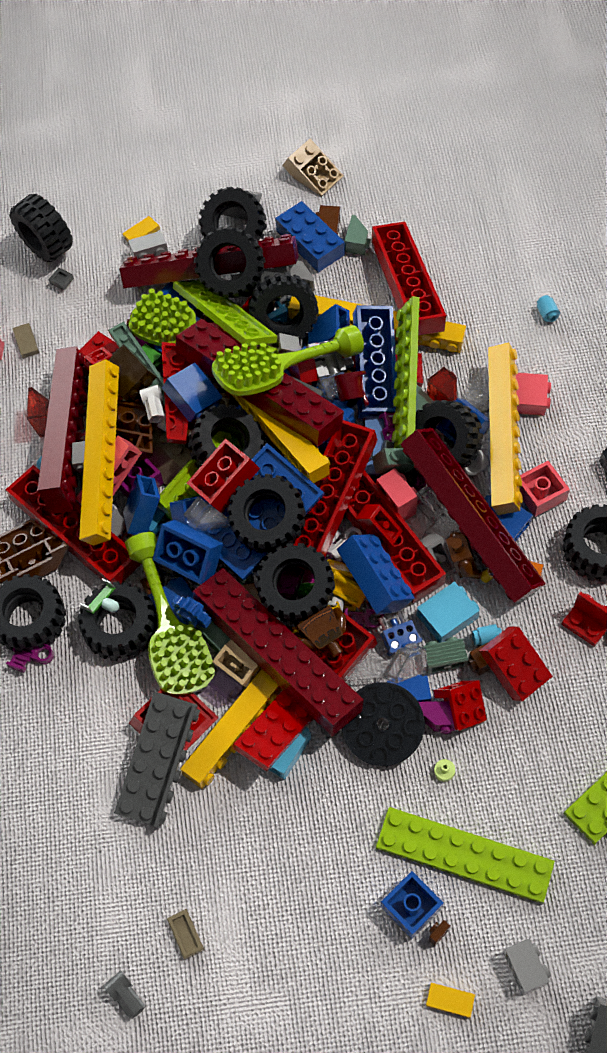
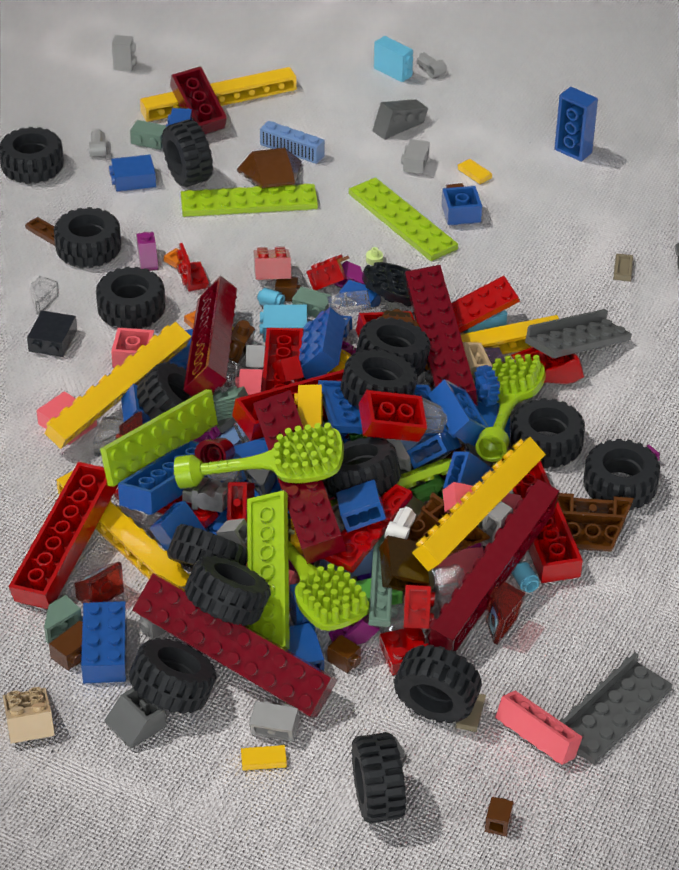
camera: 150 degrees left, 20 degrees down
(40, 296) = (437, 683): none -> black tyre
(102, 598) = (551, 429): piece -> none
(353, 269) = (101, 585): none -> clear red slope

